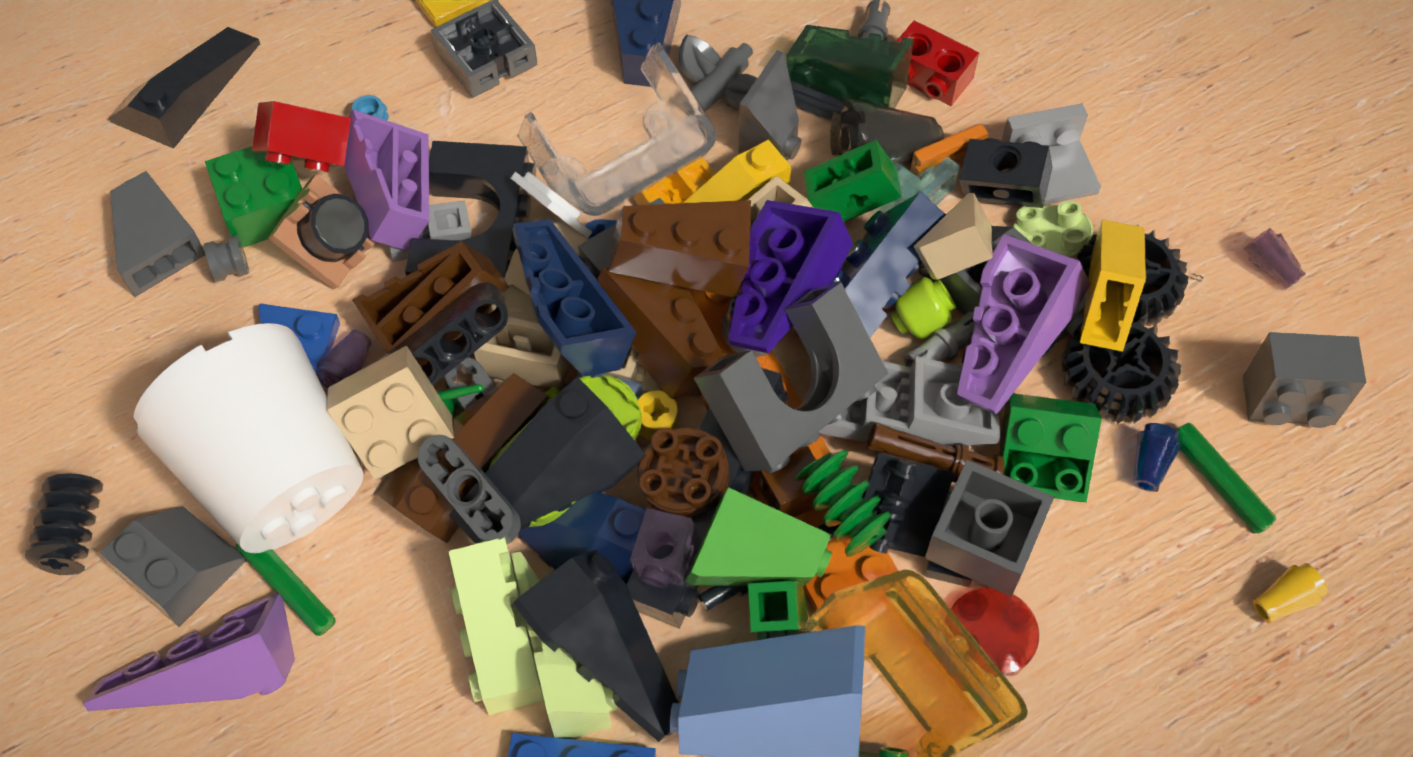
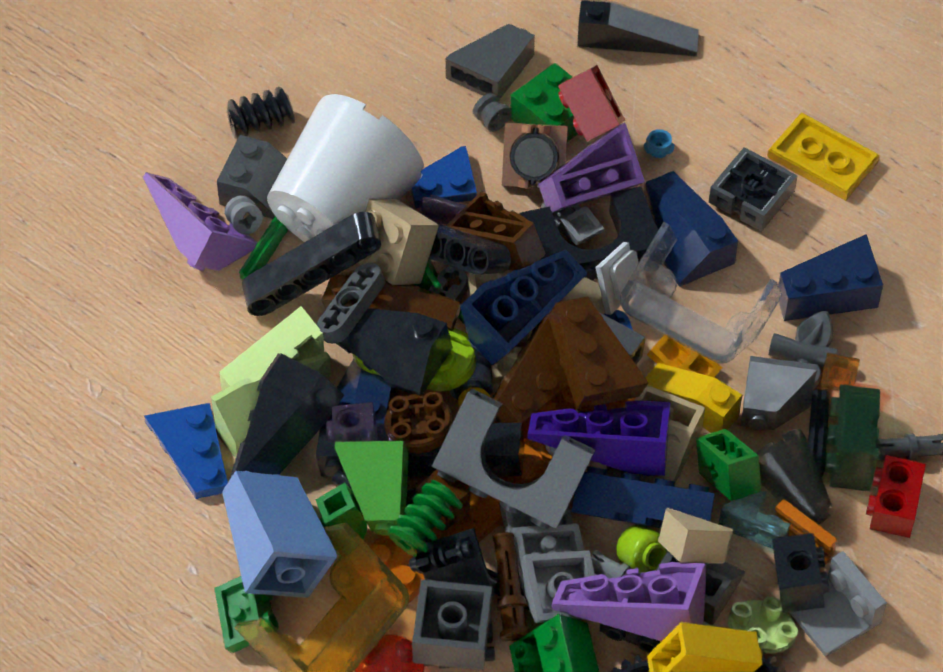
camera: 70 degrees right, 5 degrees down
(228, 593) = (237, 209): none -> light grey wheel
(373, 524) = (311, 263): none -> black beam
(498, 115) = (702, 235): none -> dark blue wedge
(760, 51) = (838, 371): none -> clear orange tile

